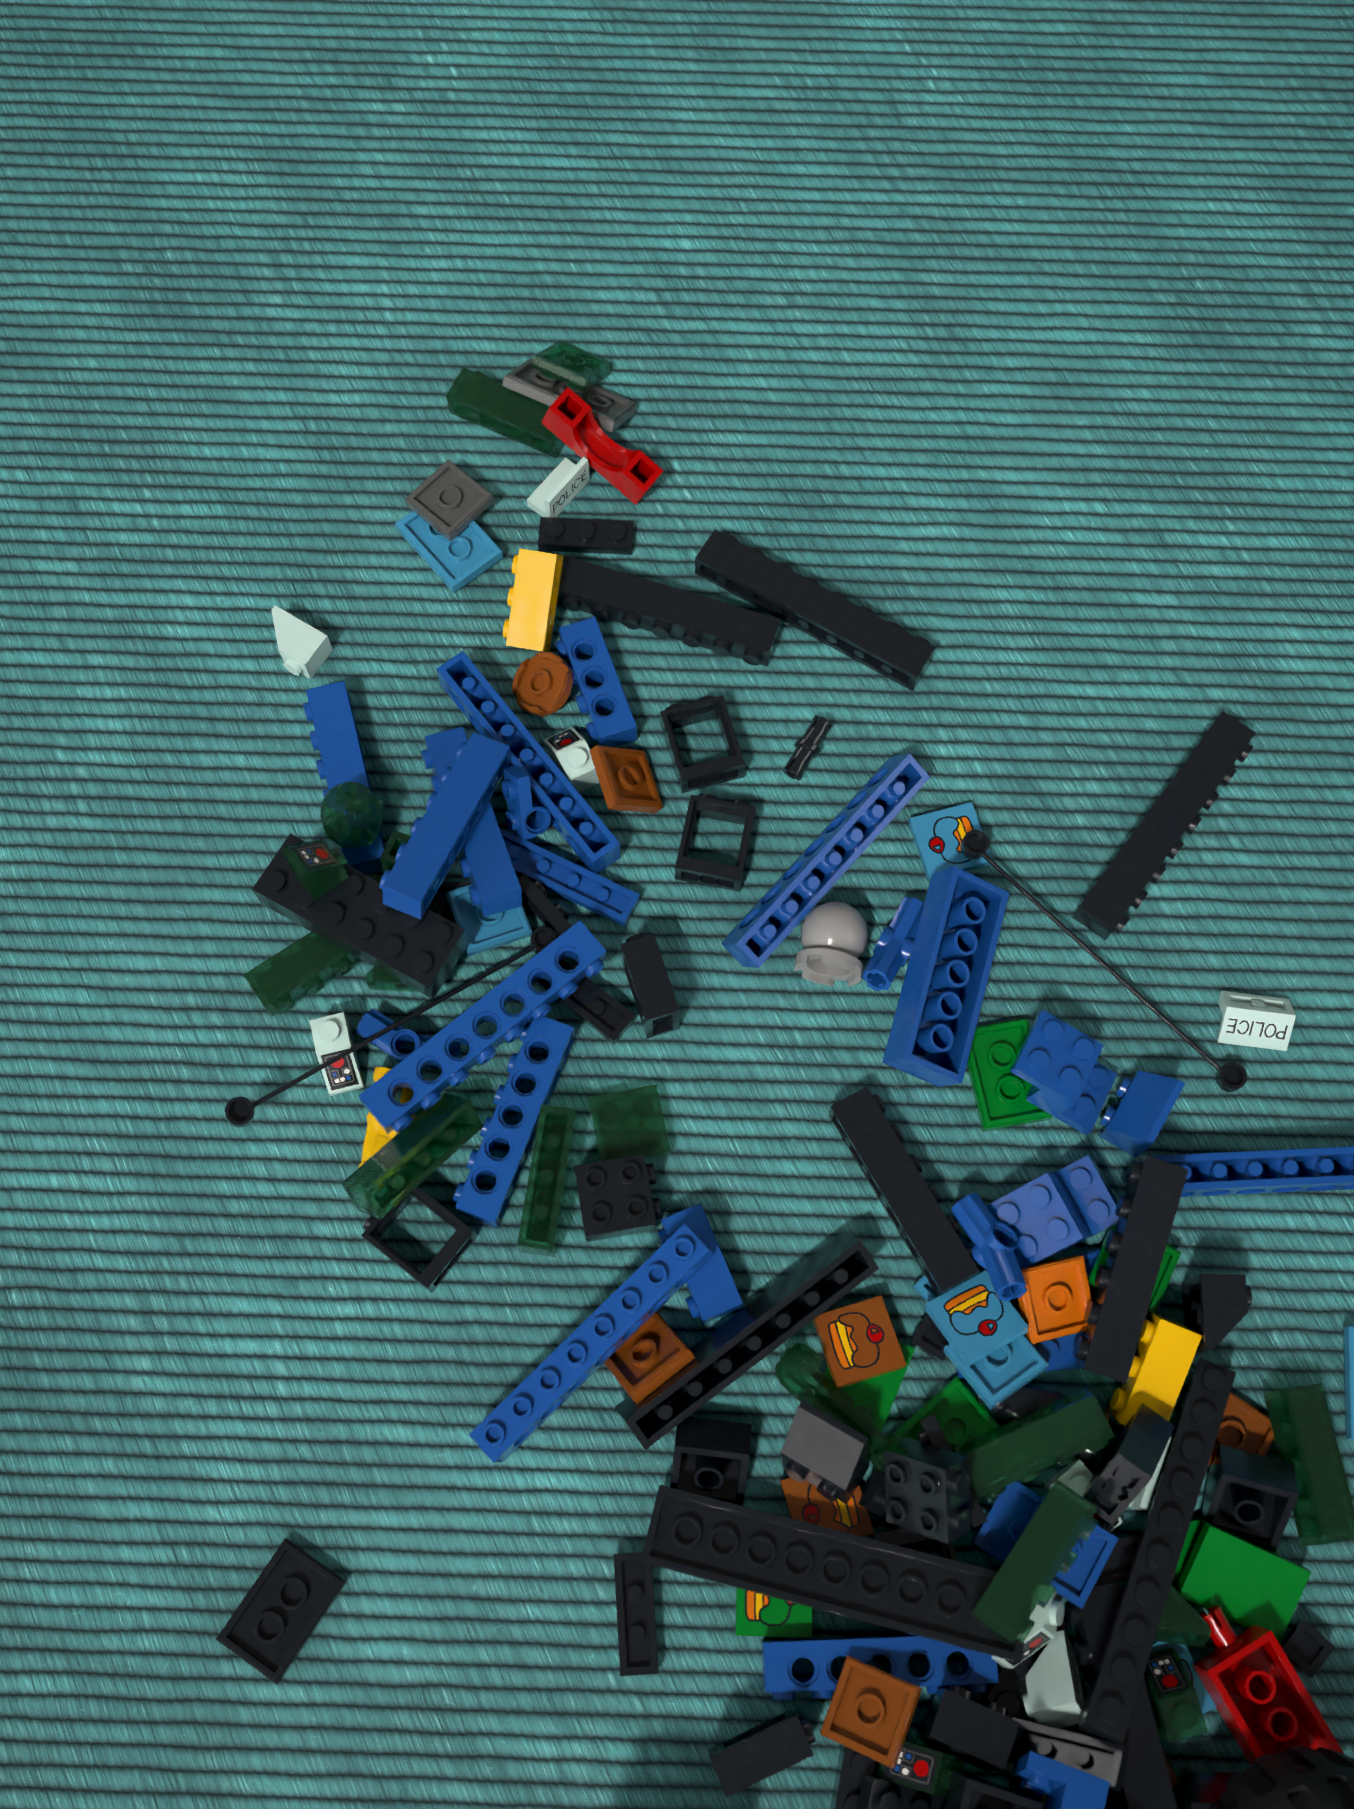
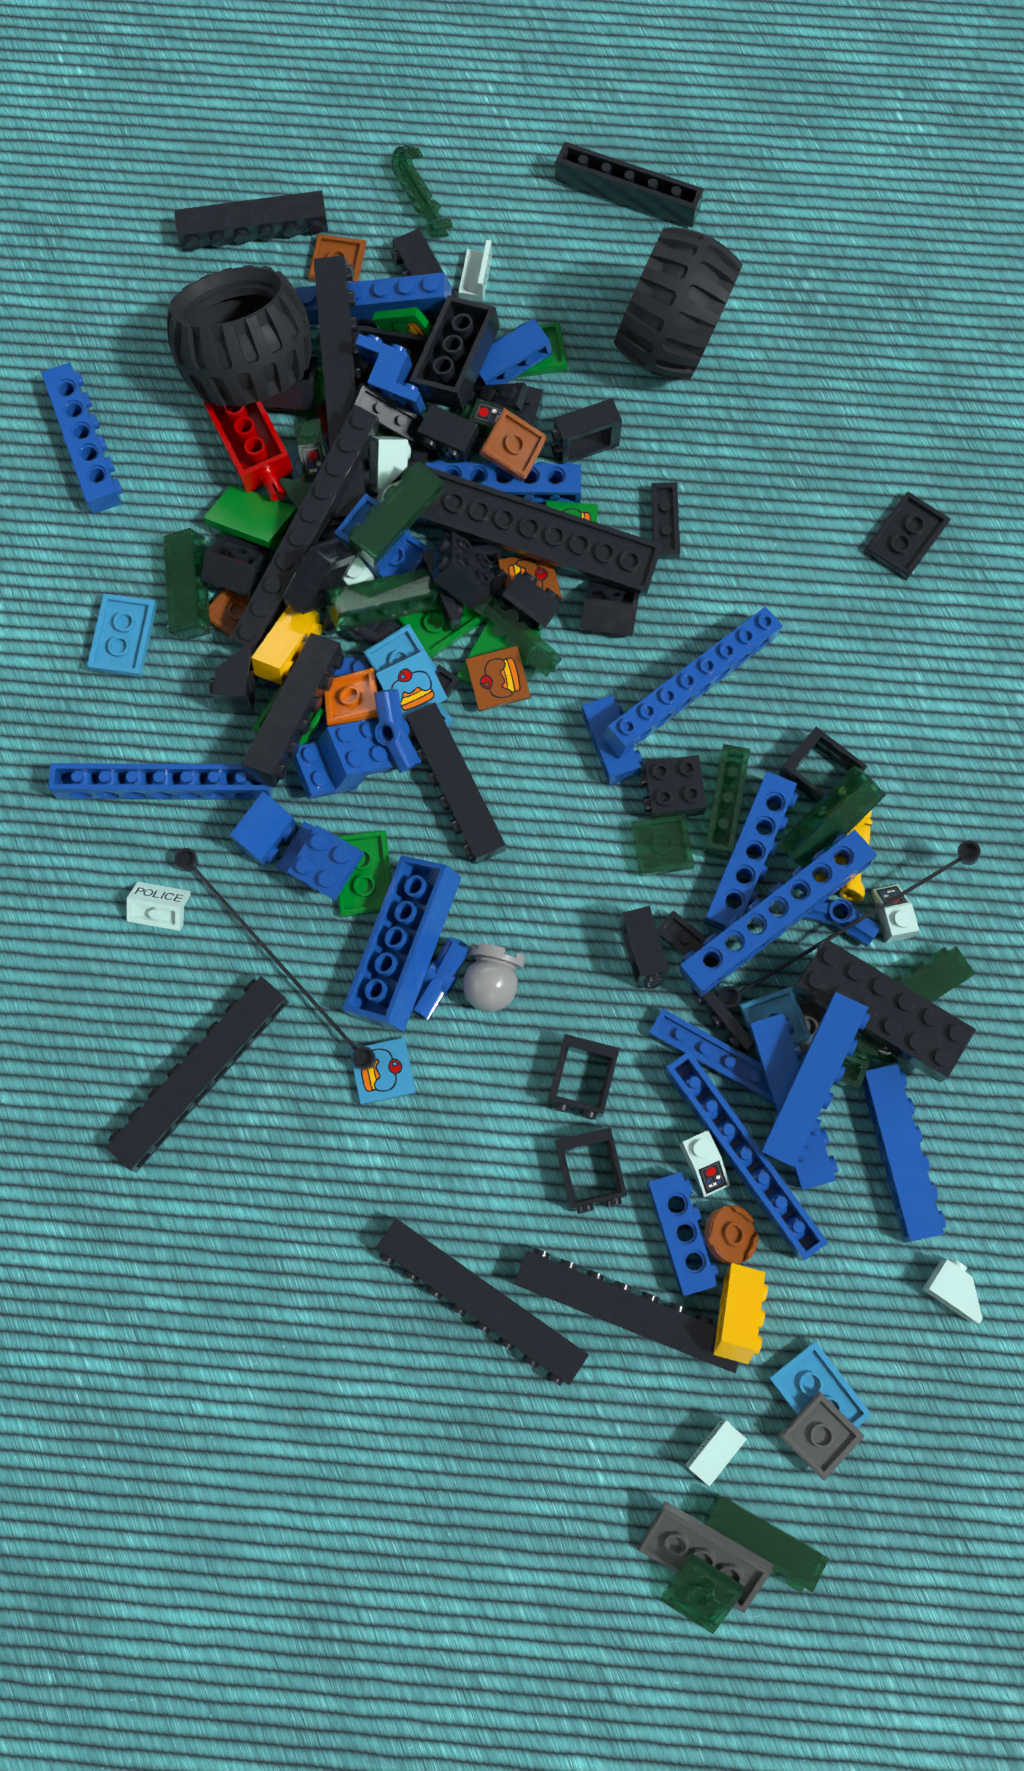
camera: 175 degrees left, 5 degrees up
(316, 866) = (925, 1030): clear green slope -> none
(358, 802) = (896, 1084): clear green plate -> none
(520, 804) = (748, 1109): blue plate -> none
(575, 425) = (675, 1481): red arch -> none
(586, 535) = (690, 1397): black plate -> none
(626, 779) = (658, 1134): dark orange tile -> none
(648, 1358) = (650, 669): dark orange tile -> none
(751, 1336) = (579, 684): black brick -> none
(807, 747) = (498, 1163): black pin -> none
(825, 860) = (490, 1052): blue brick -> none
(1306, 1647) = (215, 479): black plate -> none

